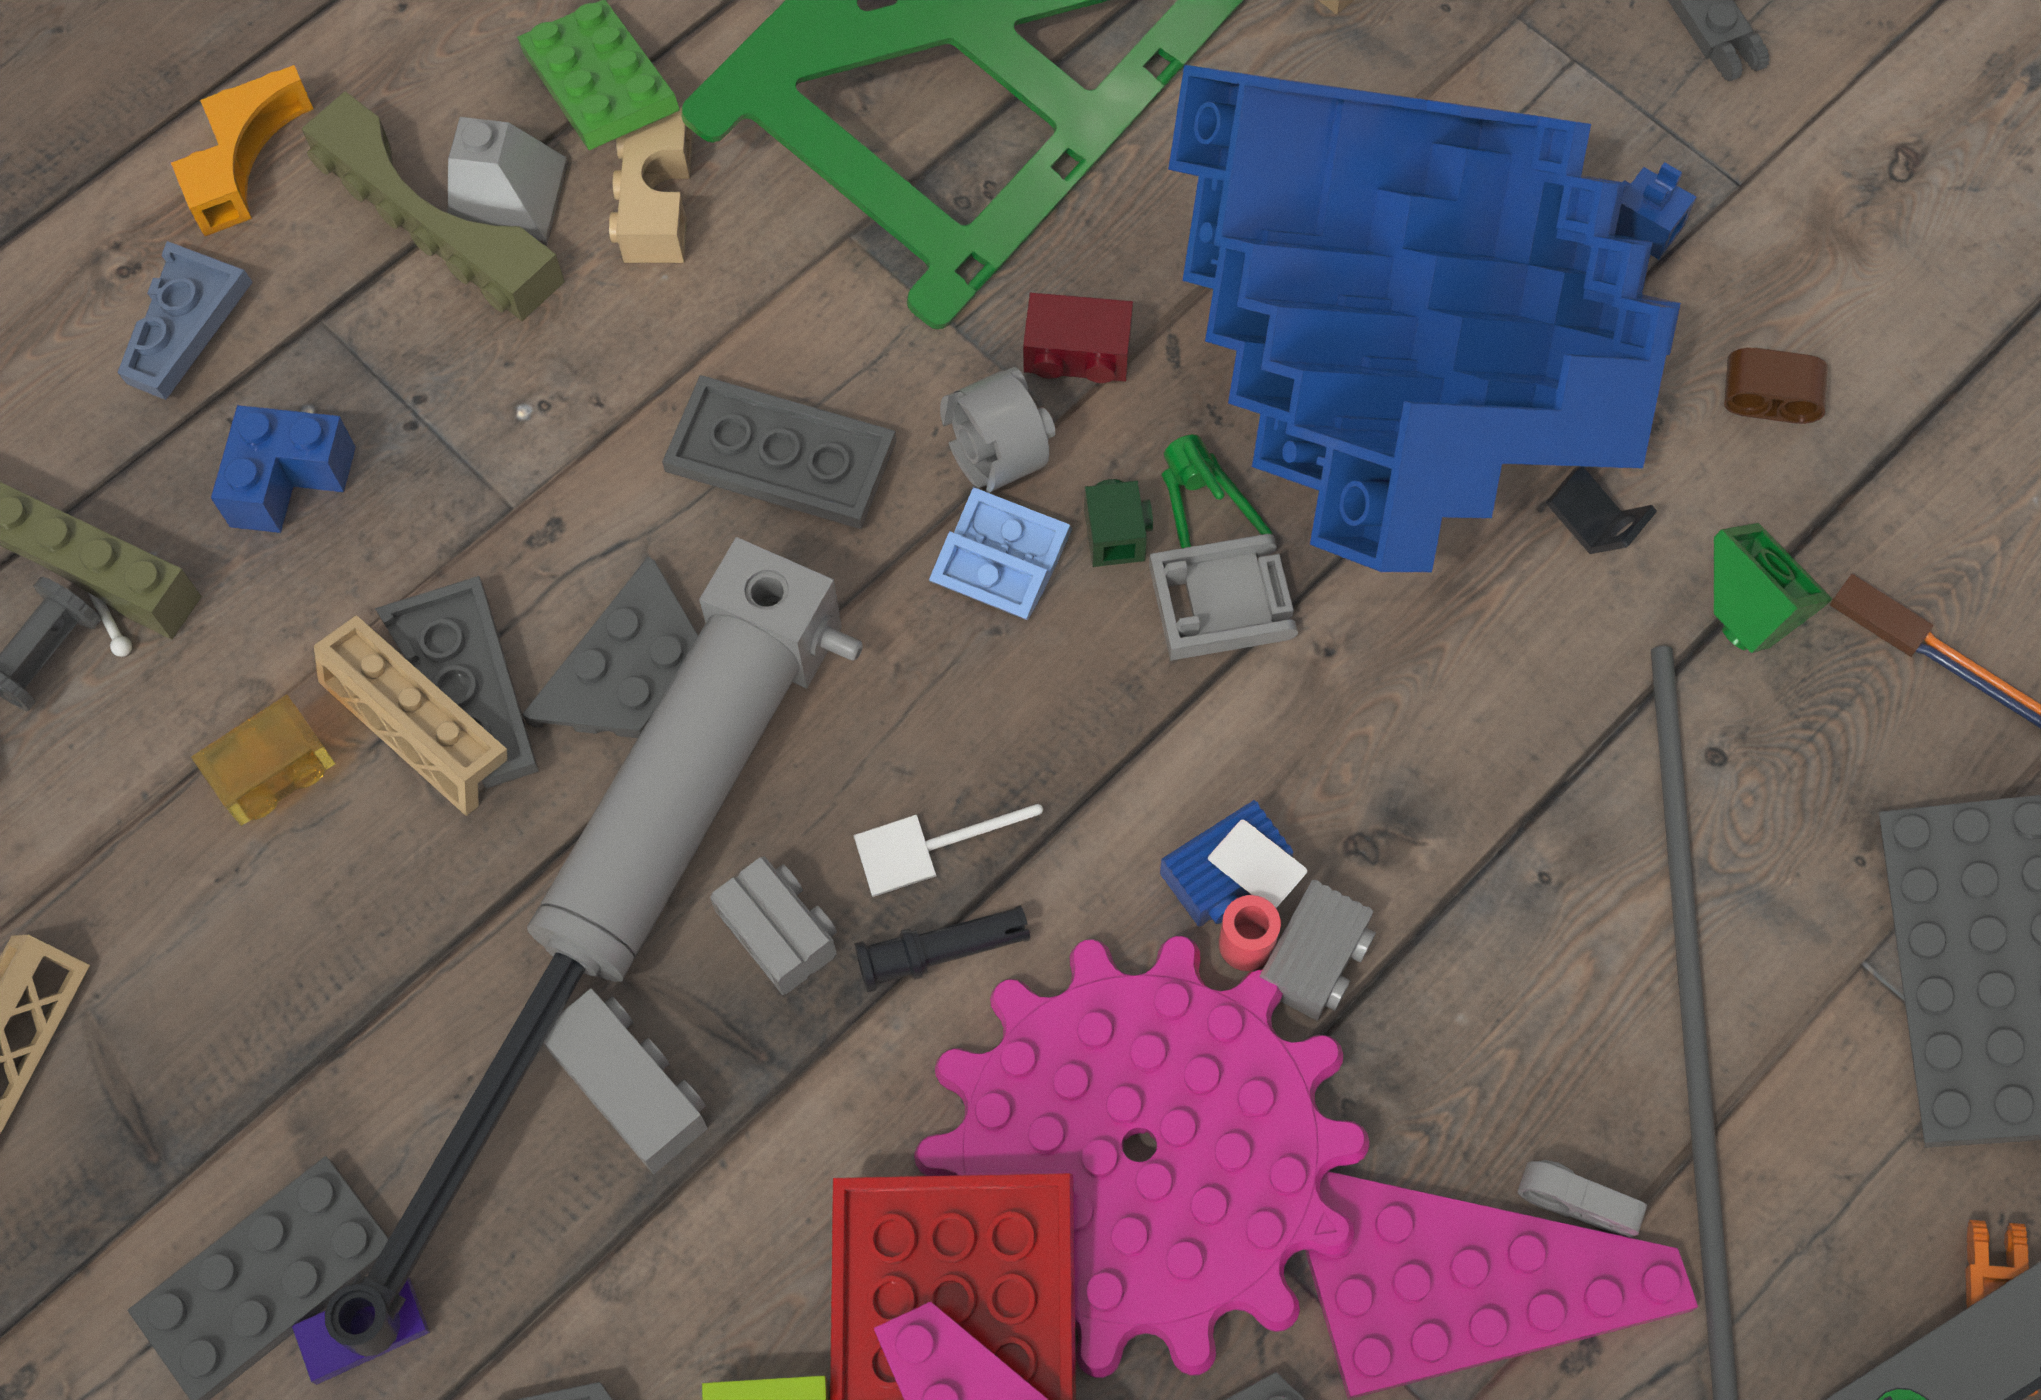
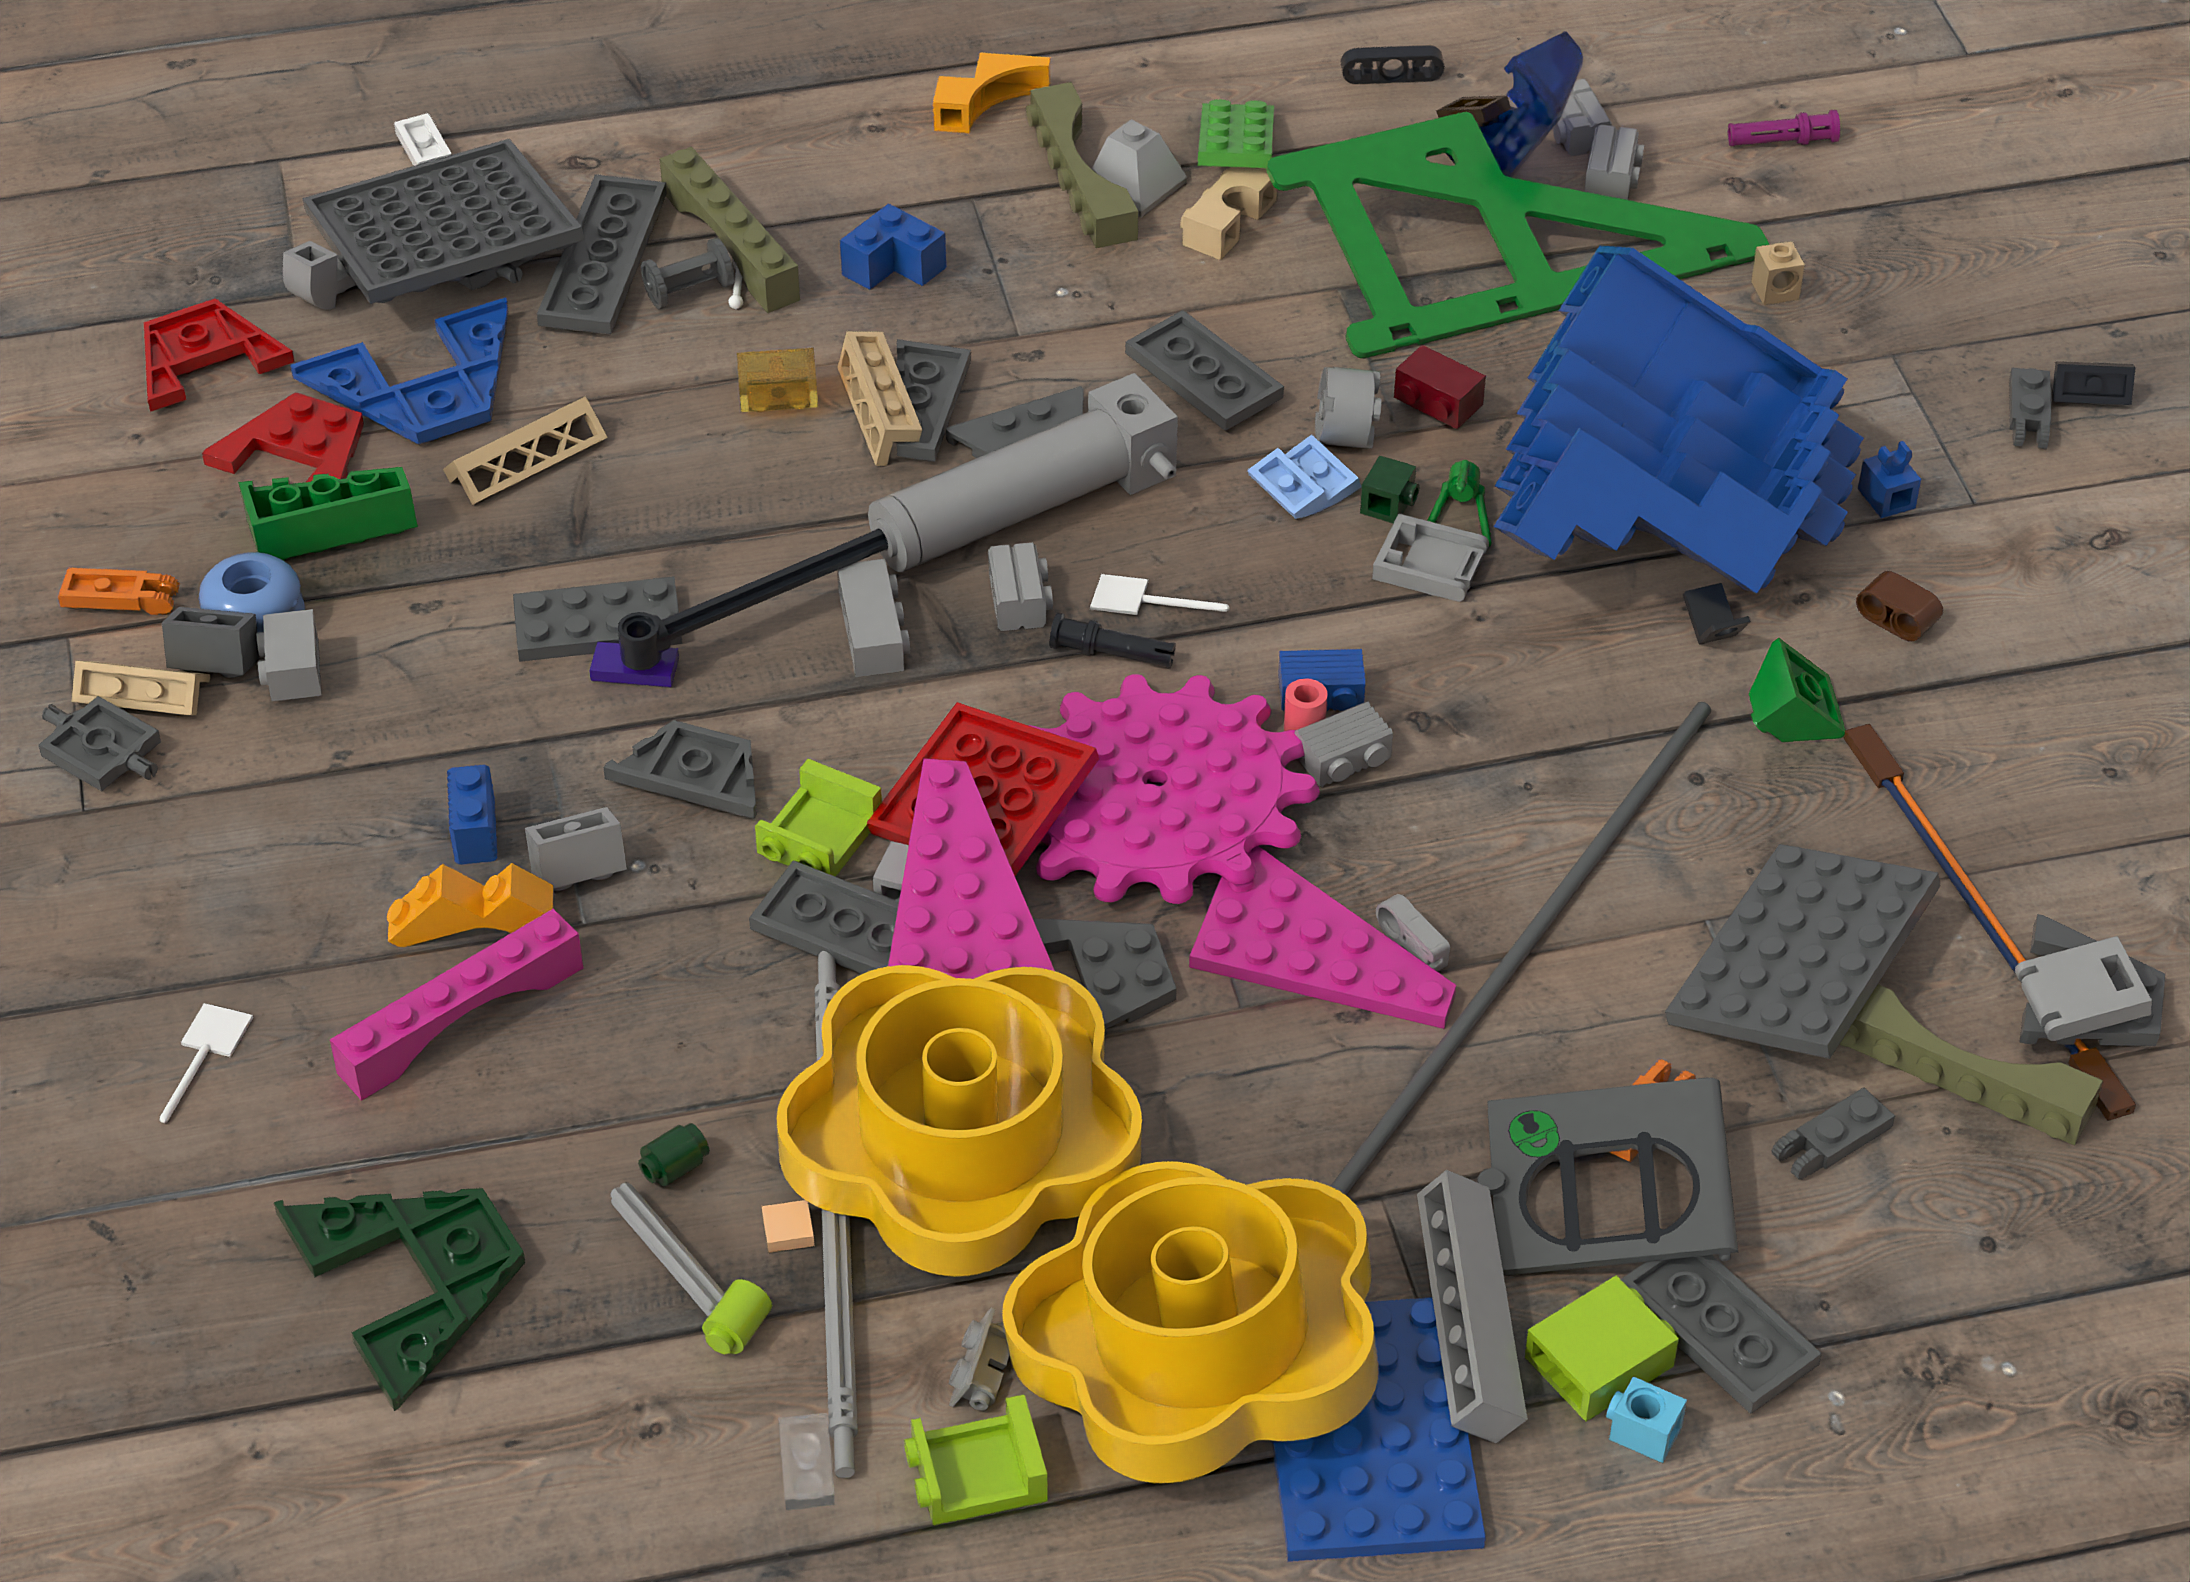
camera: 30 degrees right, 20 degrees down
(182, 318) = (893, 157): sand blue wing -> none
(1257, 863) = (1337, 676): white sticker -> none

